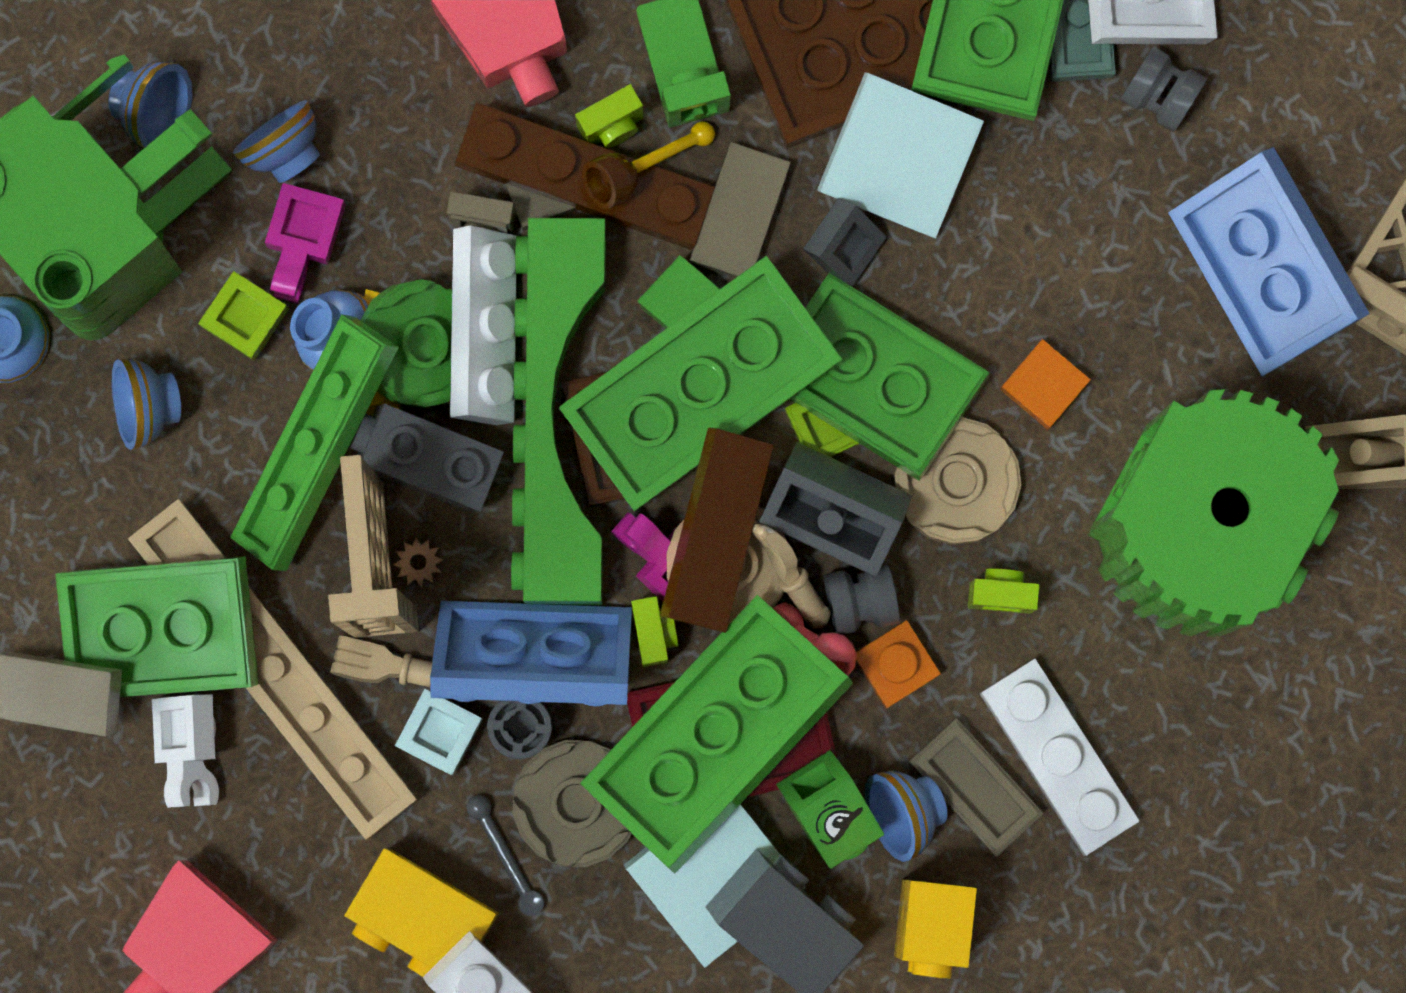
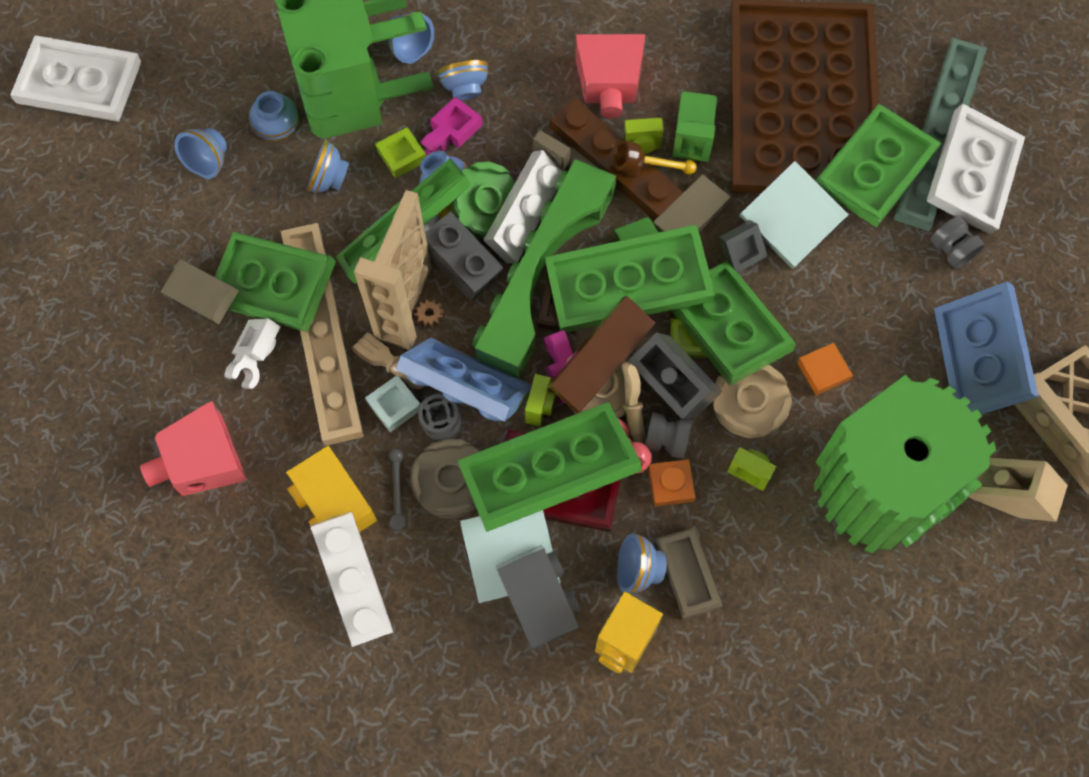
camera: 30 degrees right, 15 degrees down
(830, 809) = (595, 543): bright green brick -> none
(1059, 757) = (746, 579): white plate -> none

